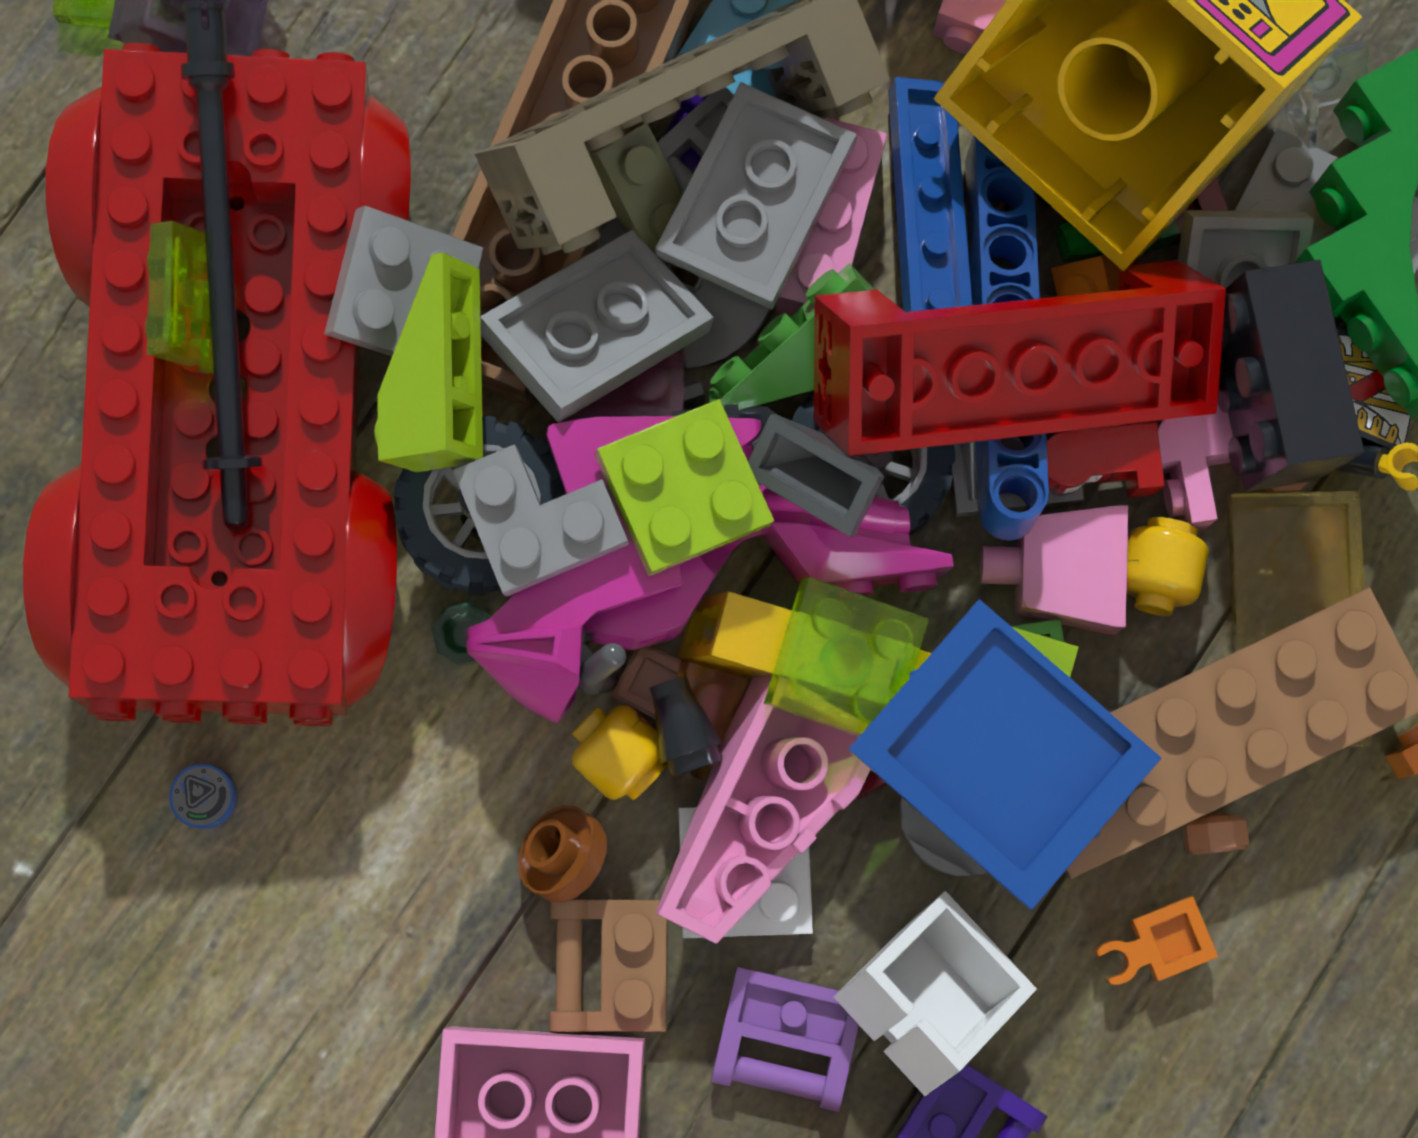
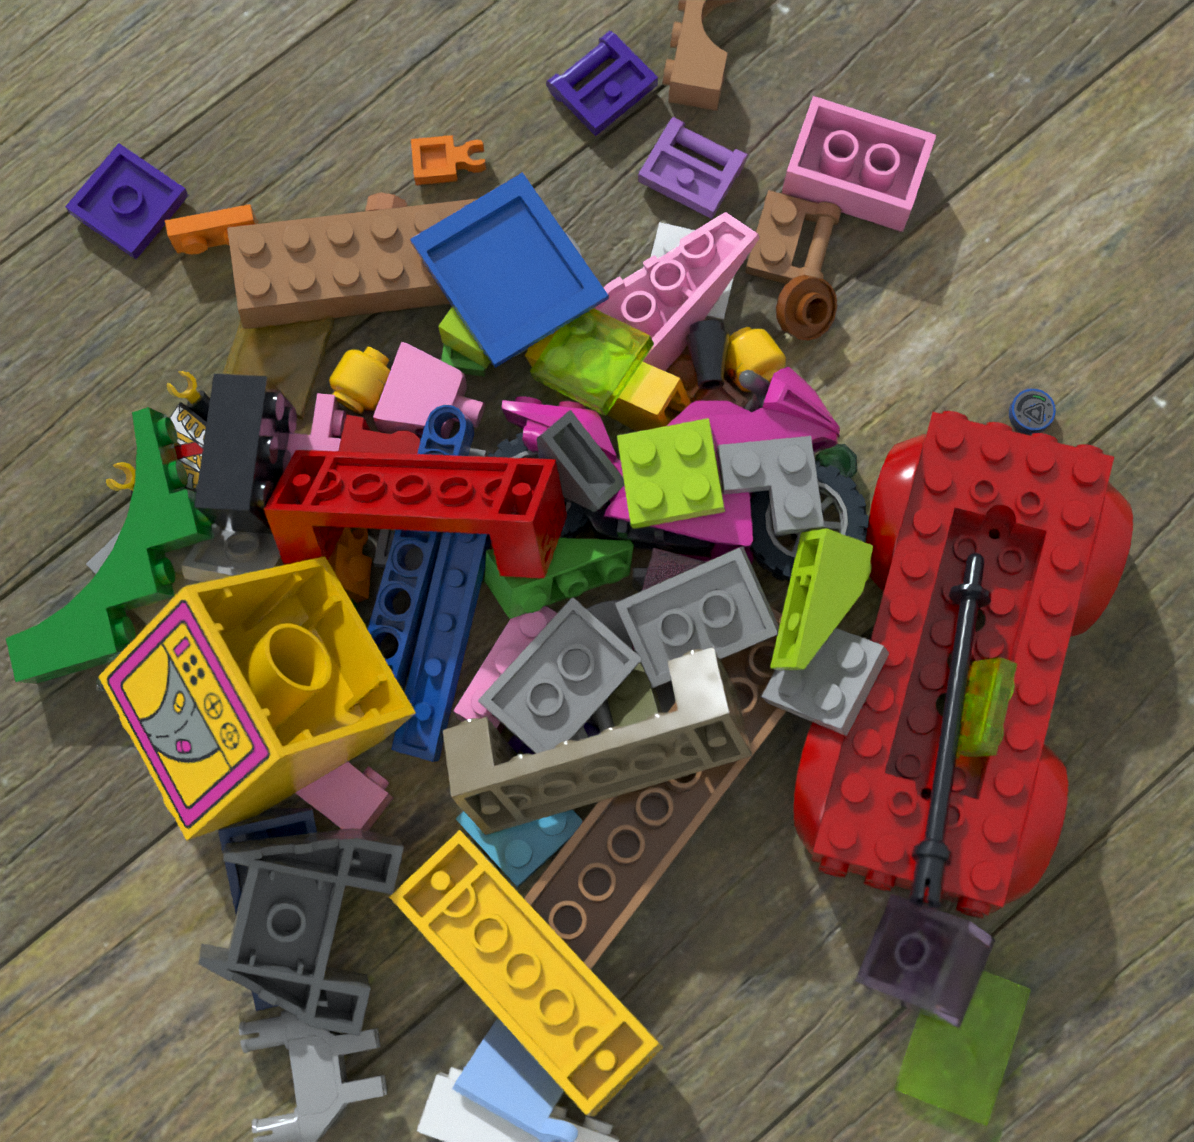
camera: 165 degrees left, 5 degrees down
(936, 993) = (595, 155): white piece -> none

